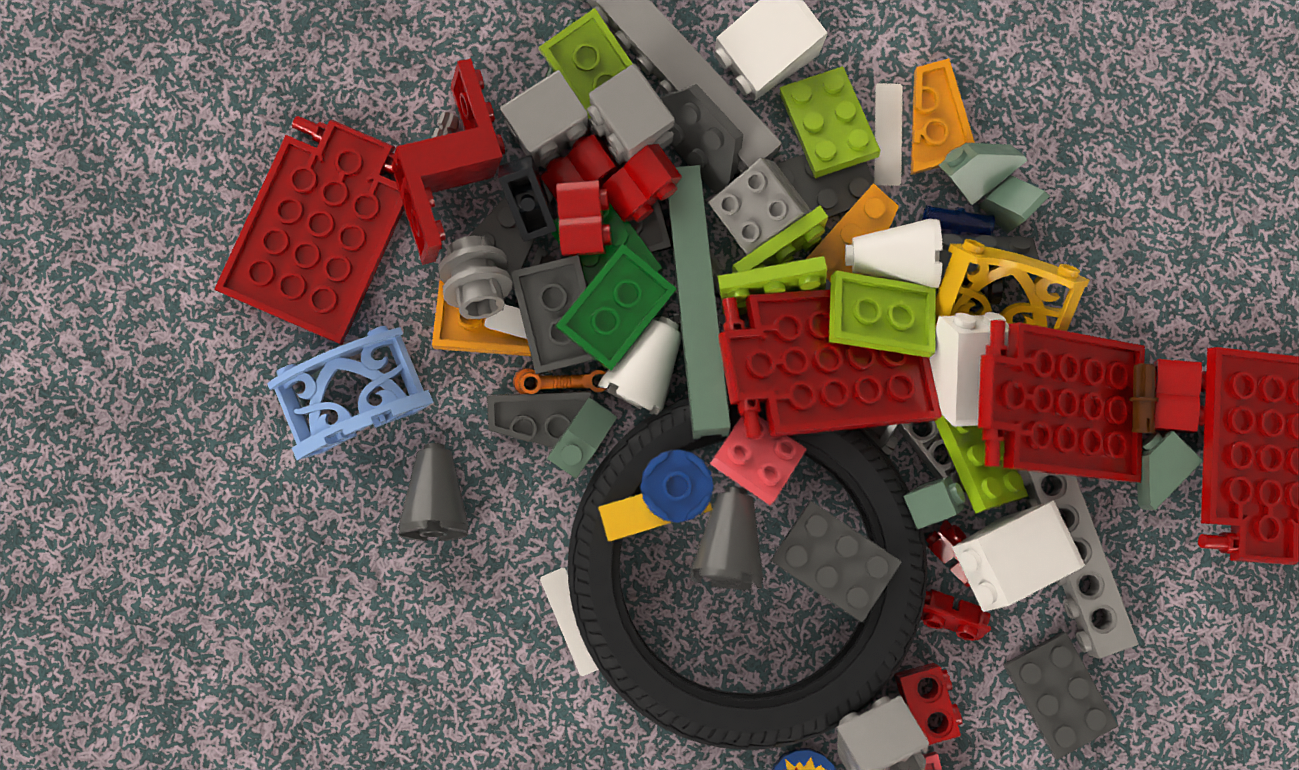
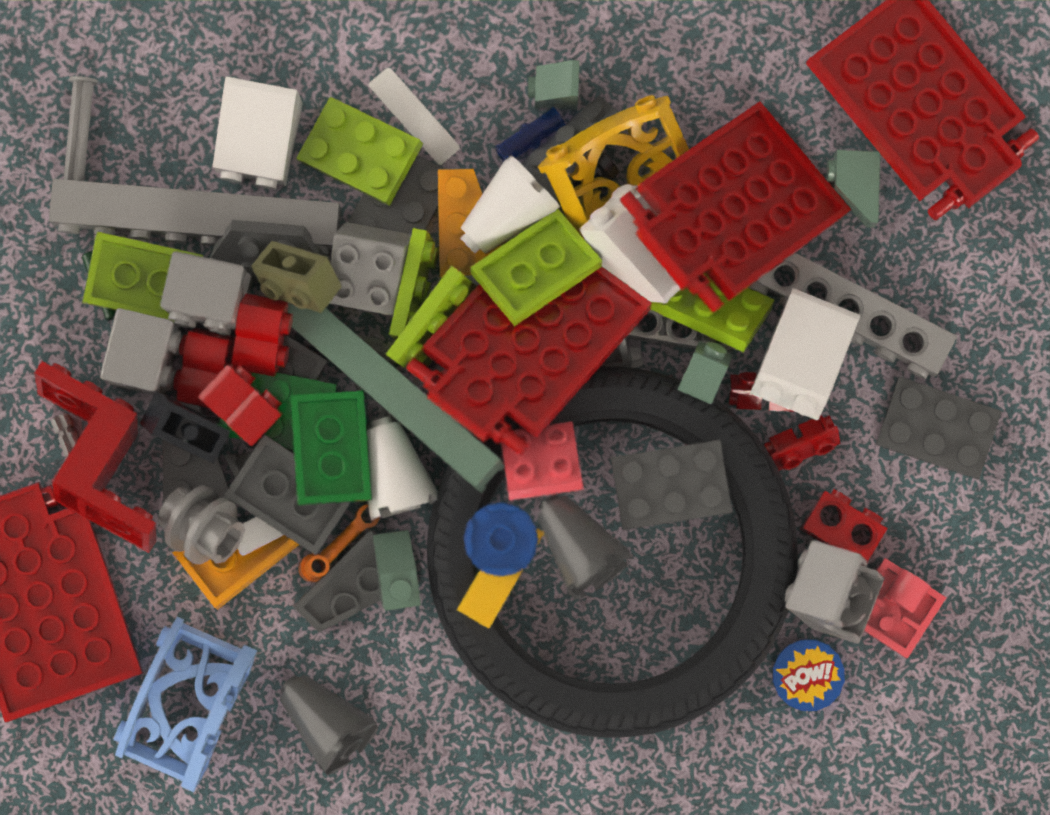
camera: 35 degrees left, 0 degrees up
(558, 594) = (488, 706): white sticker -> none
(705, 163) = (296, 276): none -> olive brick
(938, 116) = (443, 70): light orange wing -> none
(980, 167) = (508, 80): sand green slope -> none
(1143, 398) = (793, 145): reddish brown axle -> none
(1178, 391) = (818, 119): red brick -> none

